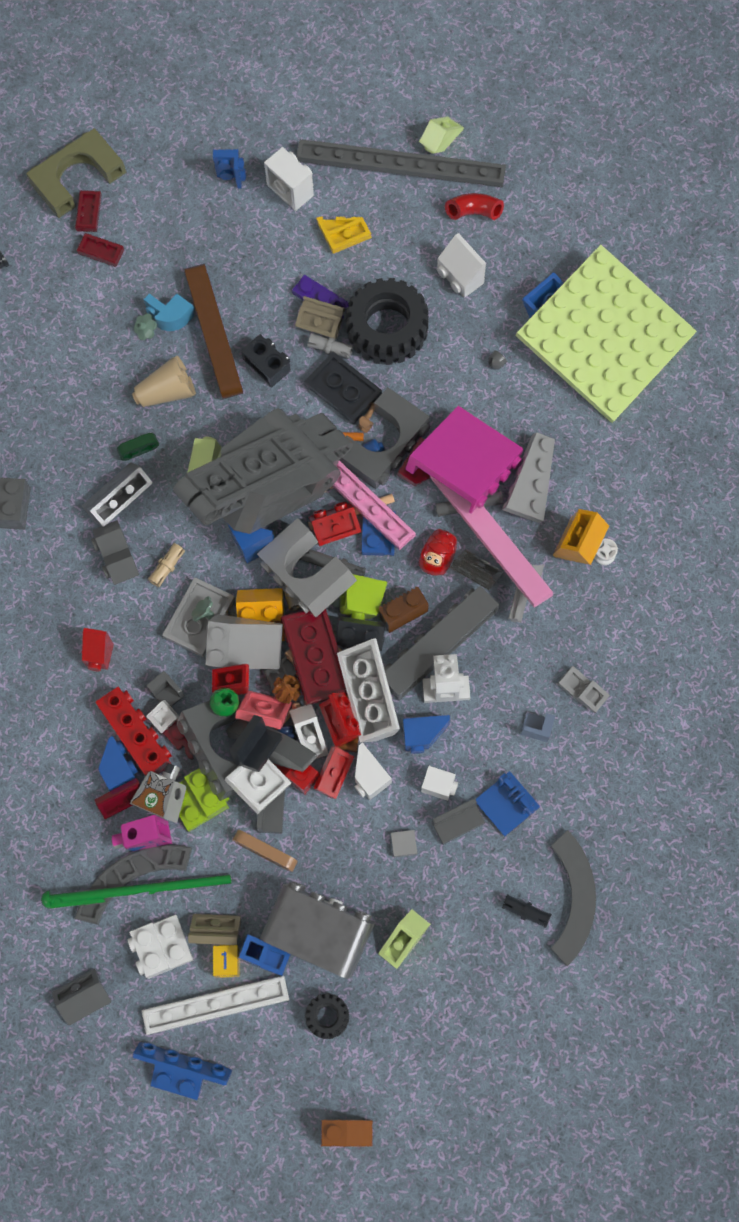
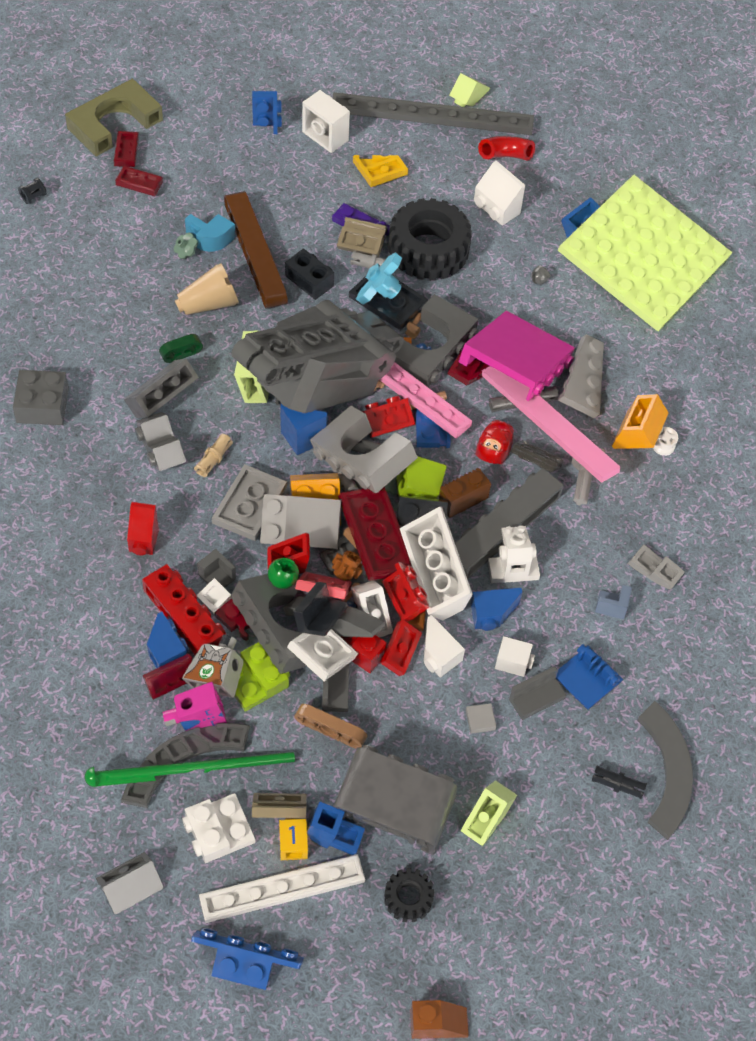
camera: 10 degrees left, 15 degrees down
(203, 610) = (255, 490): sand green plant -> none
(334, 374) = (381, 280): none -> medium azure plant

